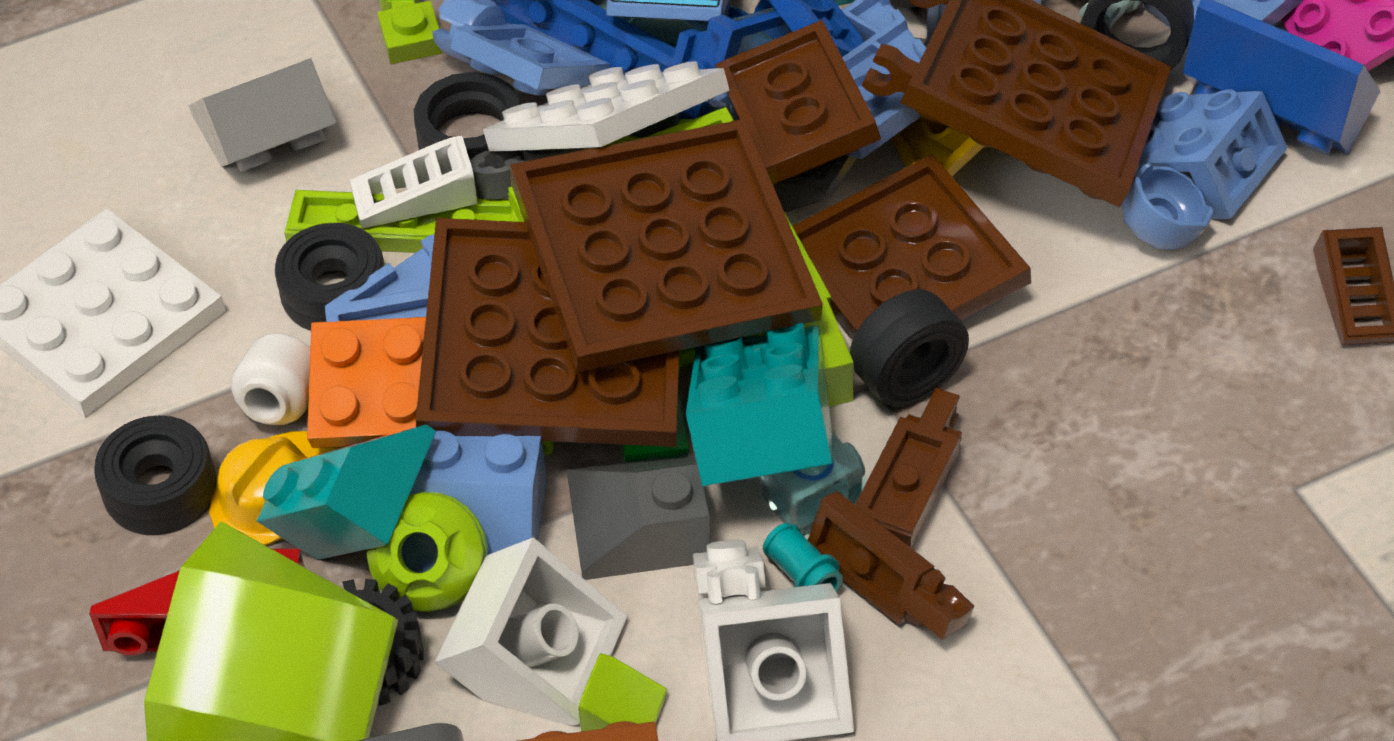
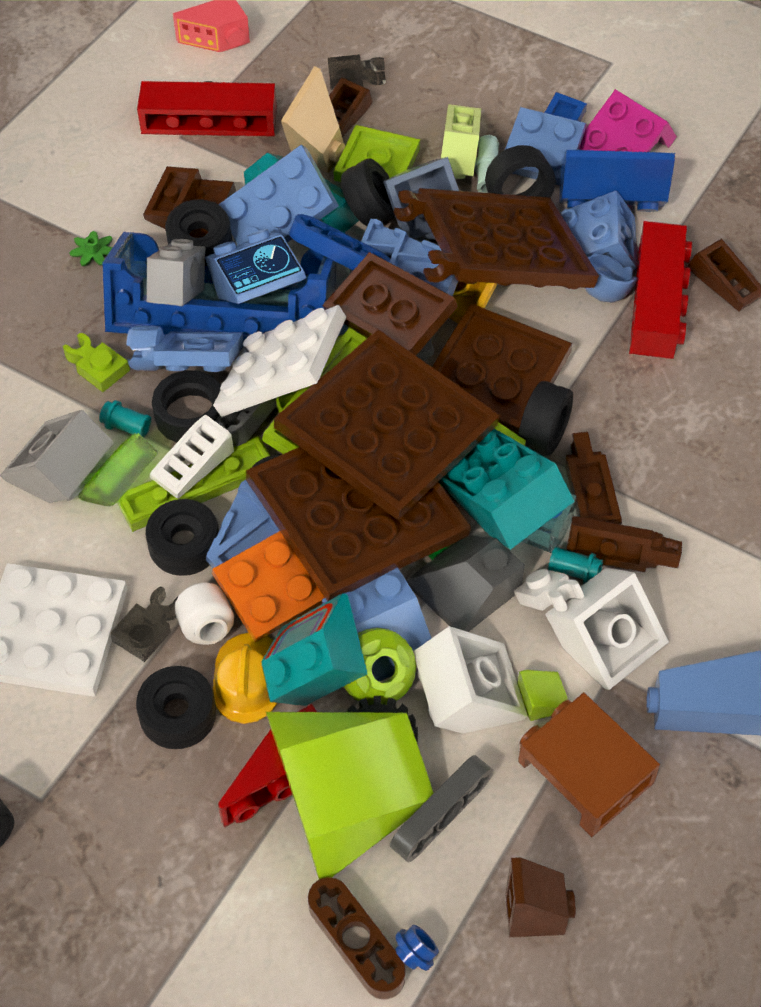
camera: 35 degrees left, 5 degrees up
(197, 363) = (144, 628): none -> clear smoke plate
(320, 161) = (119, 471): none -> clear neon green slope
(373, 95) = (116, 416): none -> teal pin
(1231, 258) = (658, 290): none -> red brick

